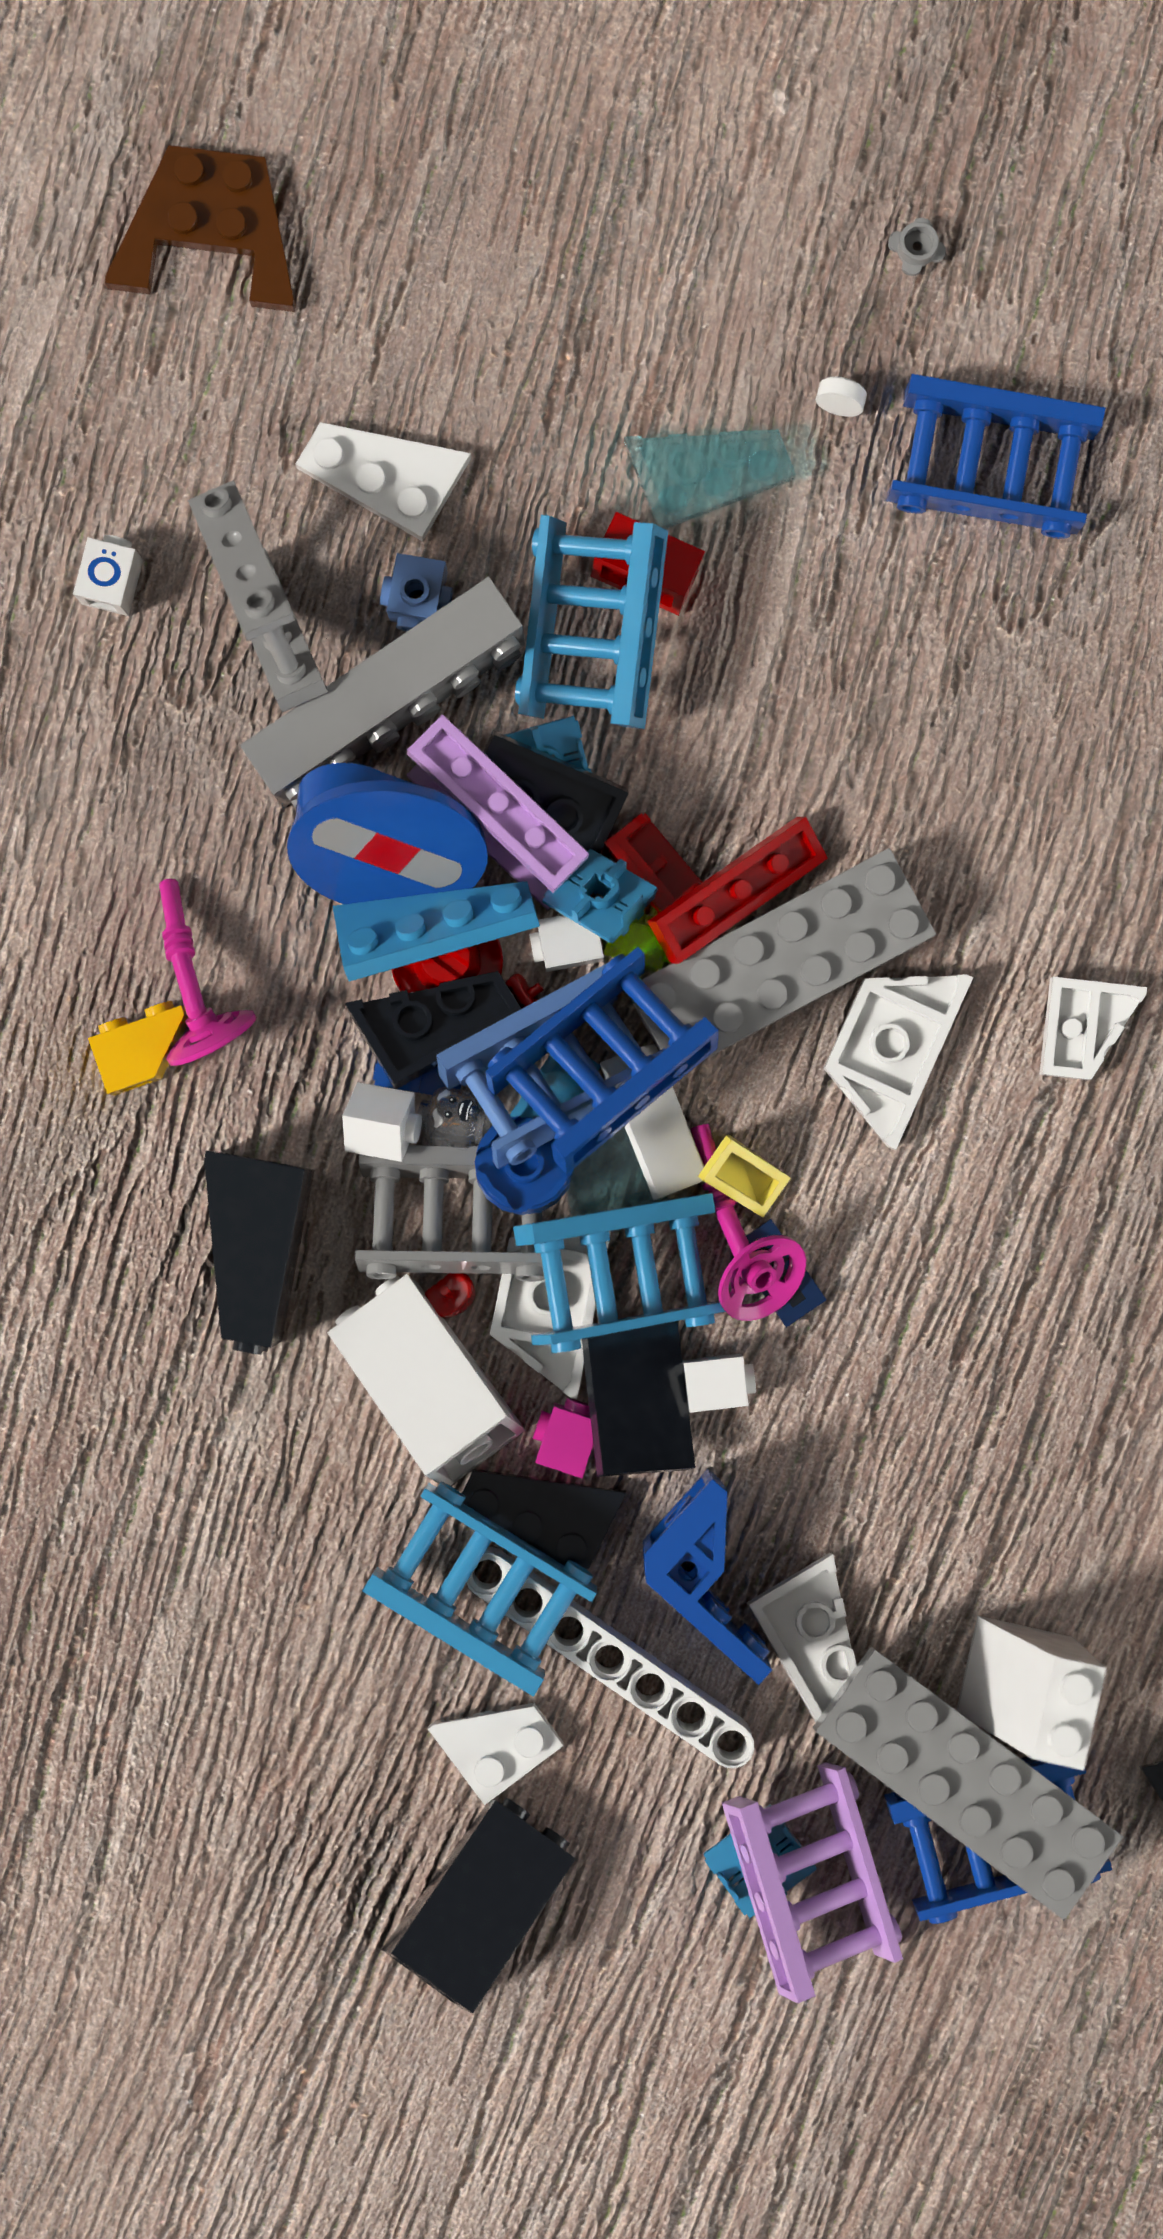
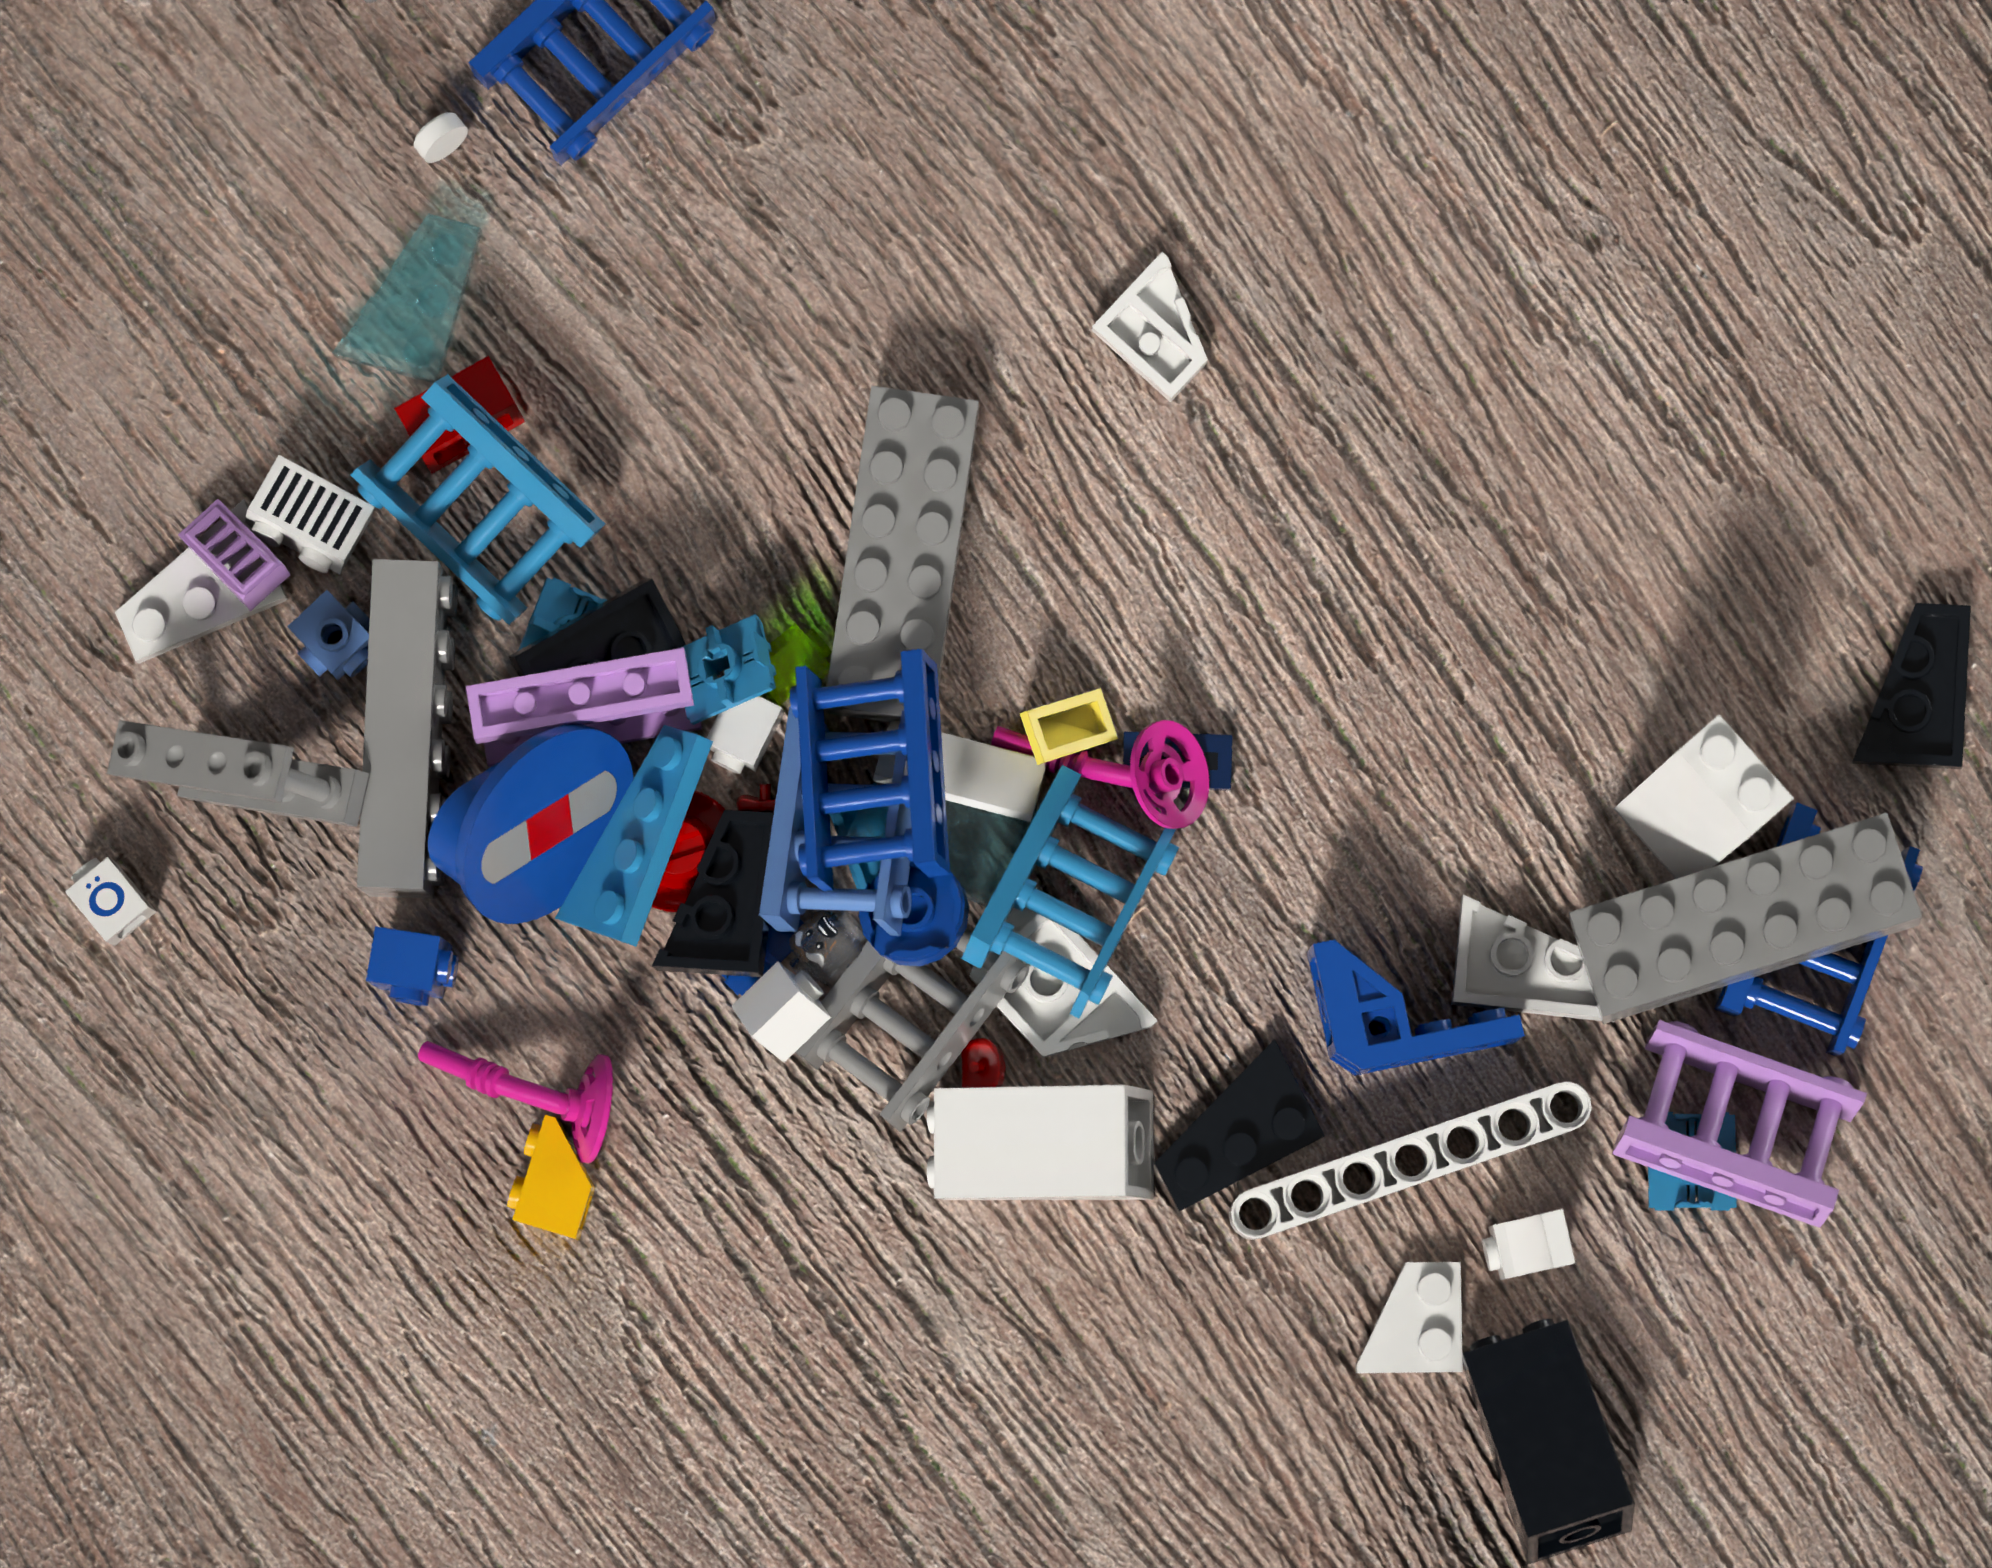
camera: 55 degrees left, 5 degrees down
(217, 827) = (411, 965): none -> blue brick
(256, 1243) = (797, 1193): black slope -> none
(416, 509) = (261, 581): none -> lavender slope
(479, 1638) = (1305, 1257): dark azure fence -> none
(490, 508) = (308, 516): none -> white brick
(565, 1437) = (1185, 1054): dark pink brick -> none
(611, 1791) = (1528, 1245): none -> white arch
(638, 1401) = (1198, 965): black tile -> none
(652, 859) = (732, 599): red hinge -> none
(718, 1382) = (1234, 884): white brick -> none
(737, 890) = (809, 546): red plate -> none
(893, 1046) = (1050, 512): white wing -> none

